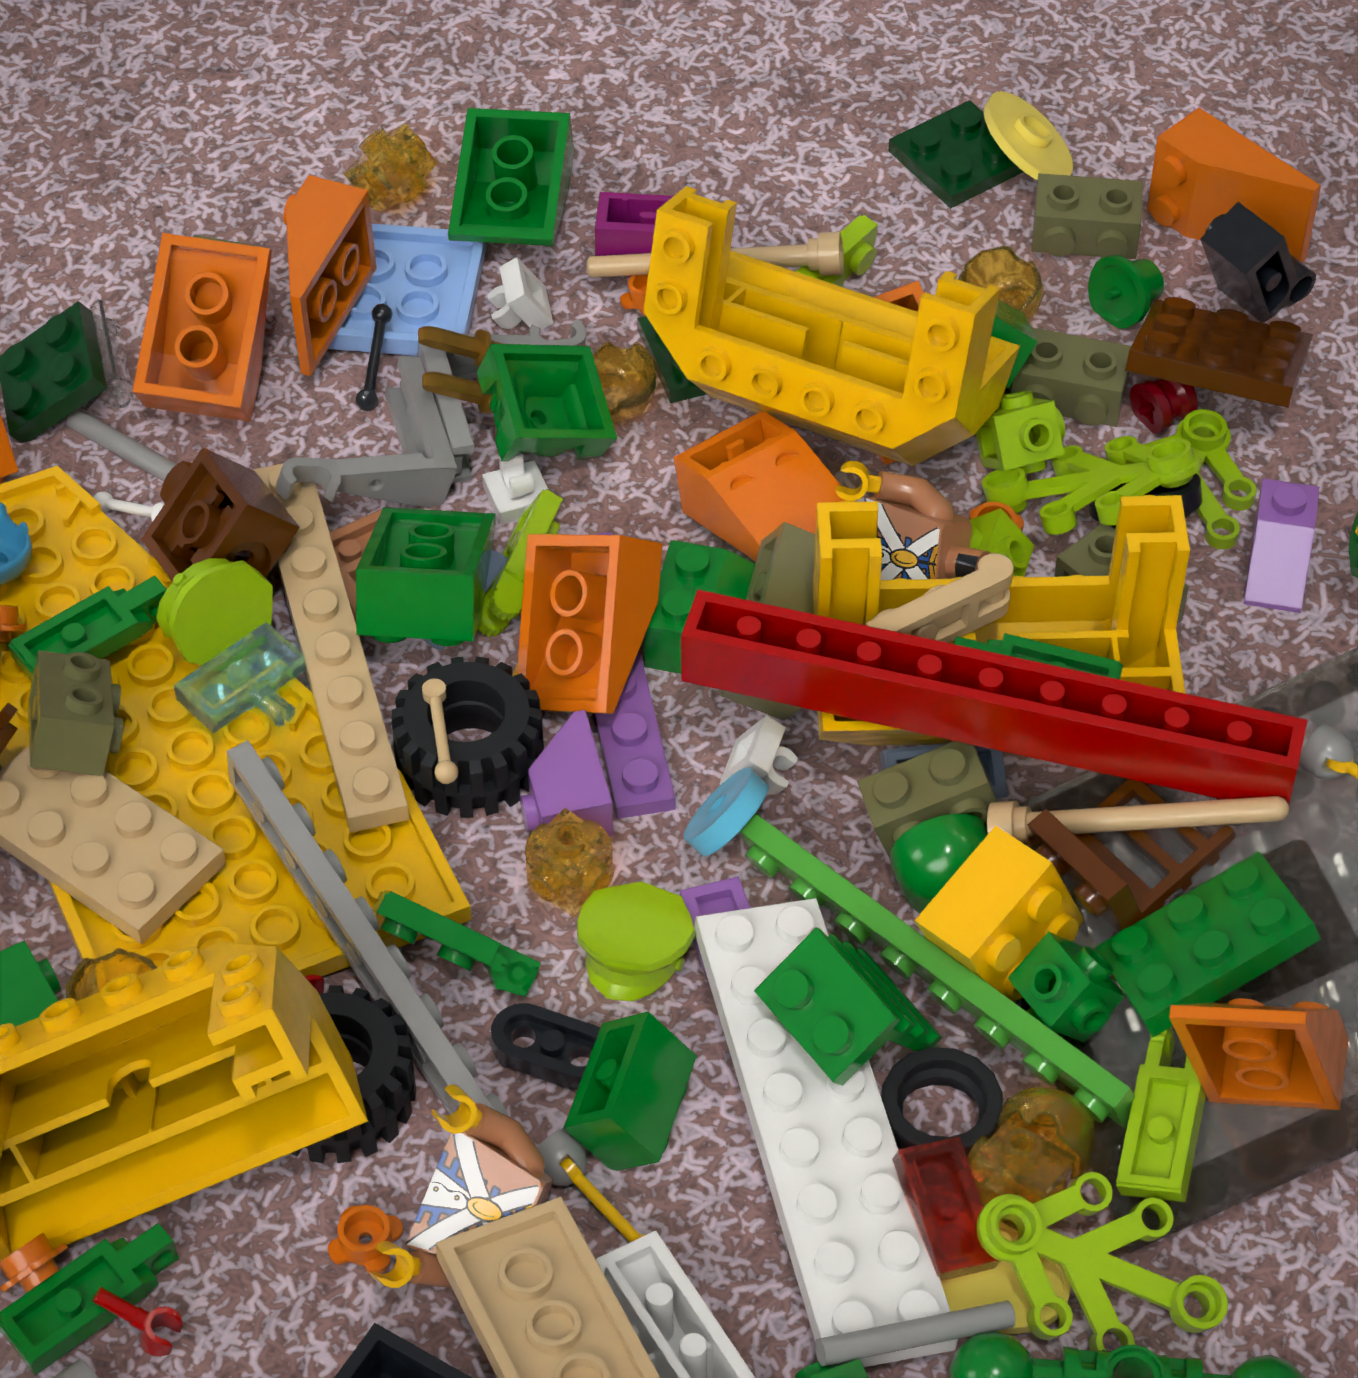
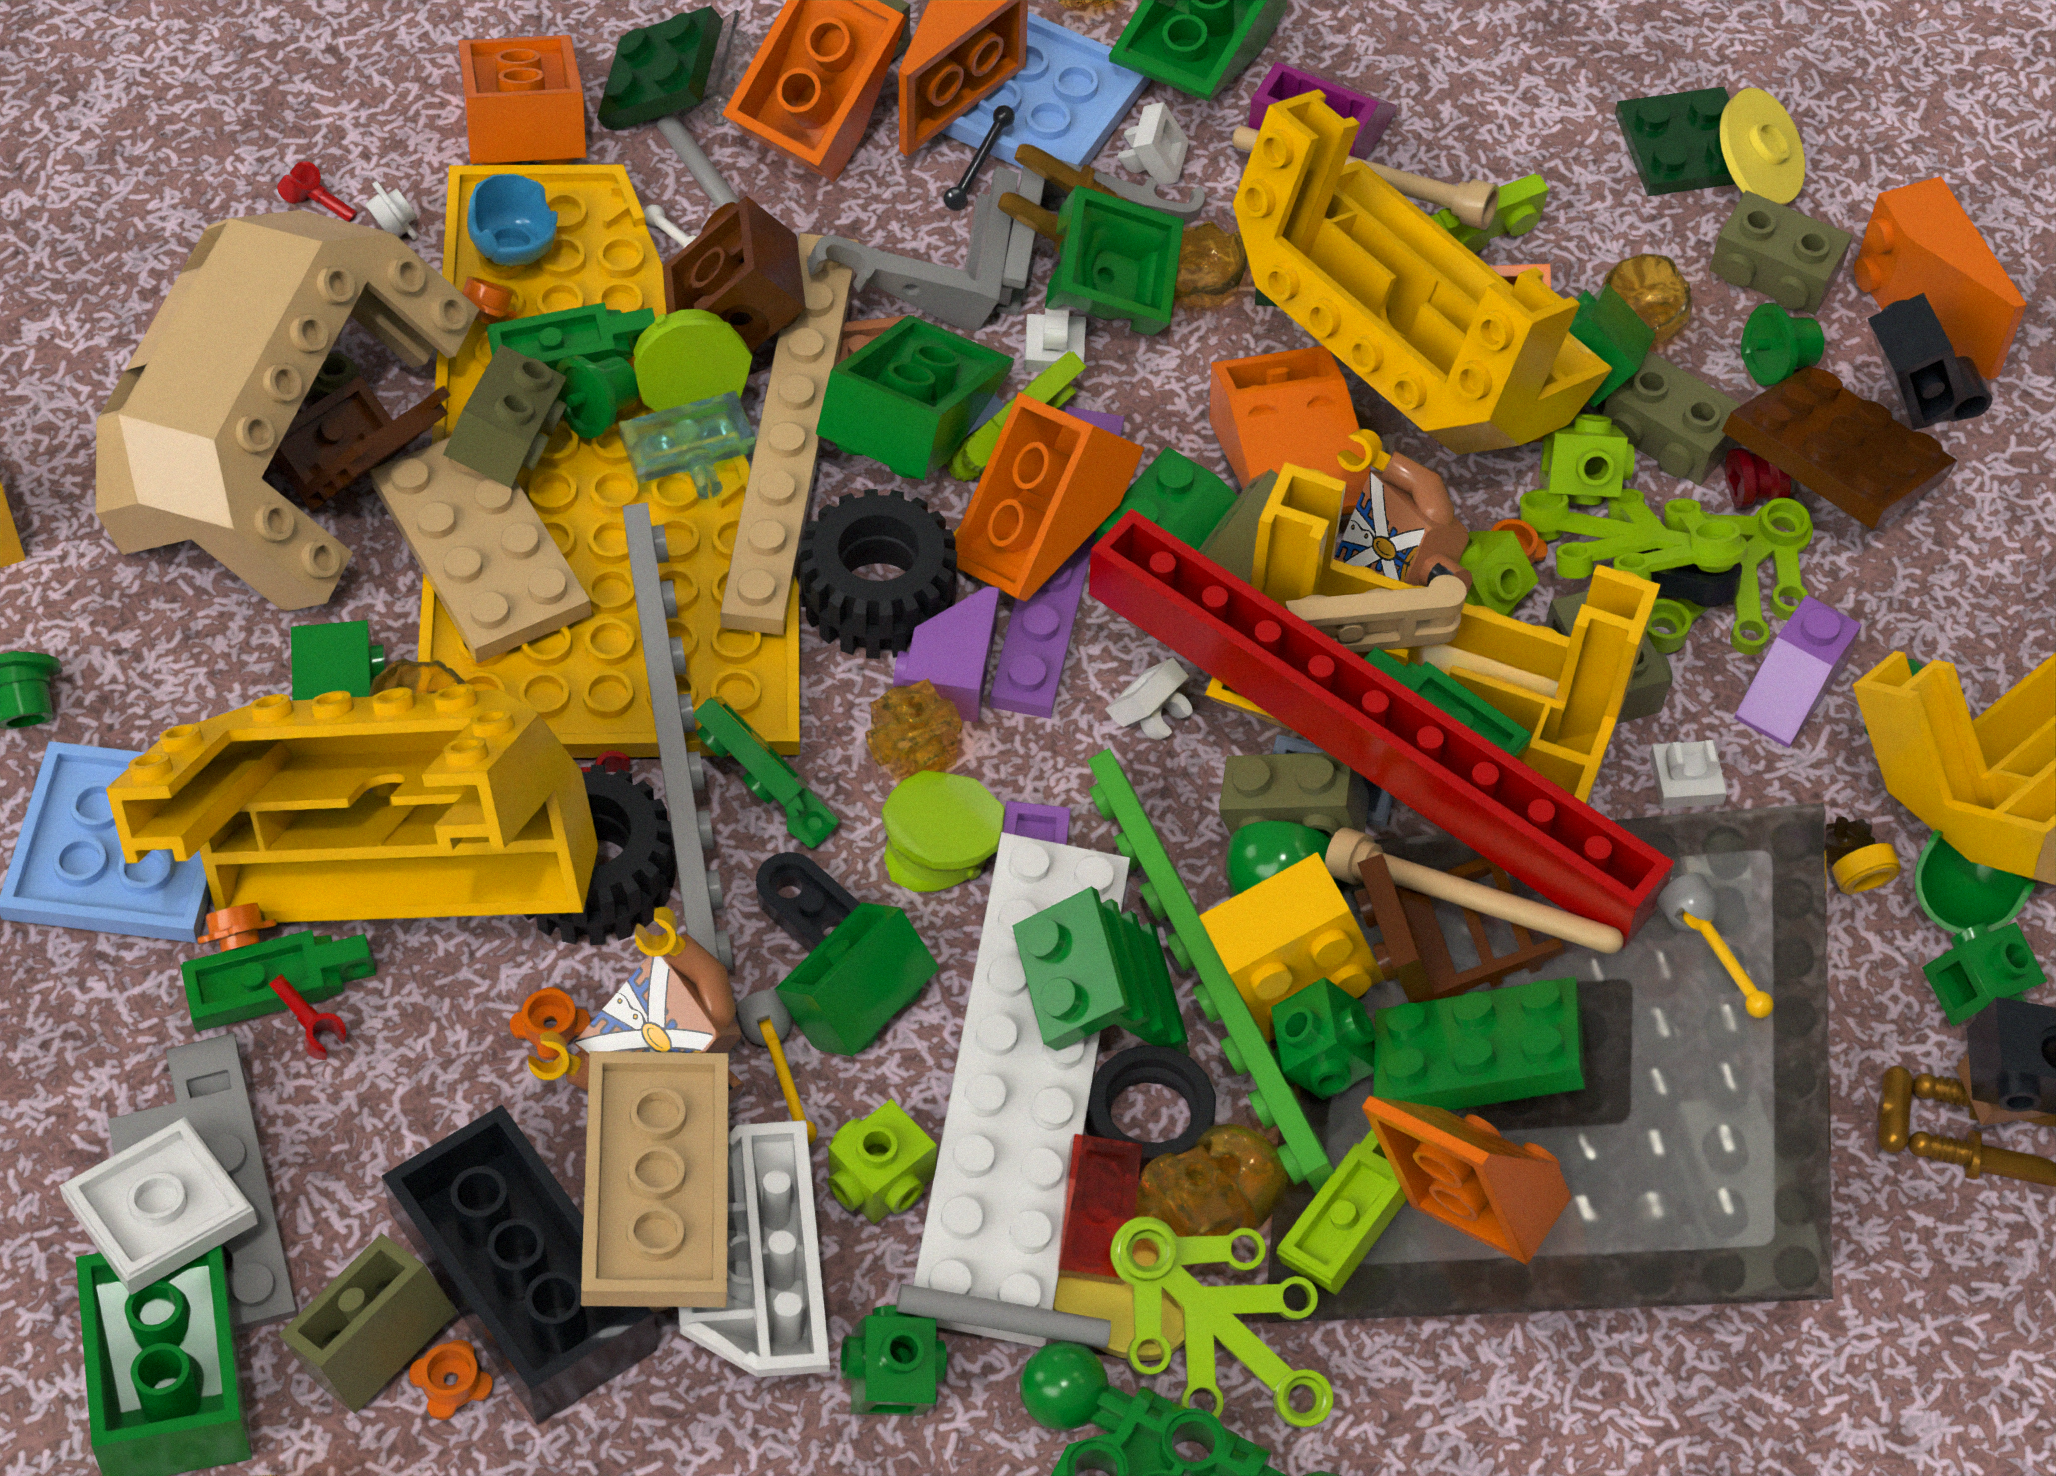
camera: 20 degrees right, 5 degrees up
(140, 666) = (596, 392): none -> green piece
(435, 693) = (854, 520): tan hinge -> none
(726, 811) = (1088, 739): medium azure piece -> none
(733, 1244) = (880, 1163): none -> lime brick
(1233, 661) = (1687, 774): none -> white tile

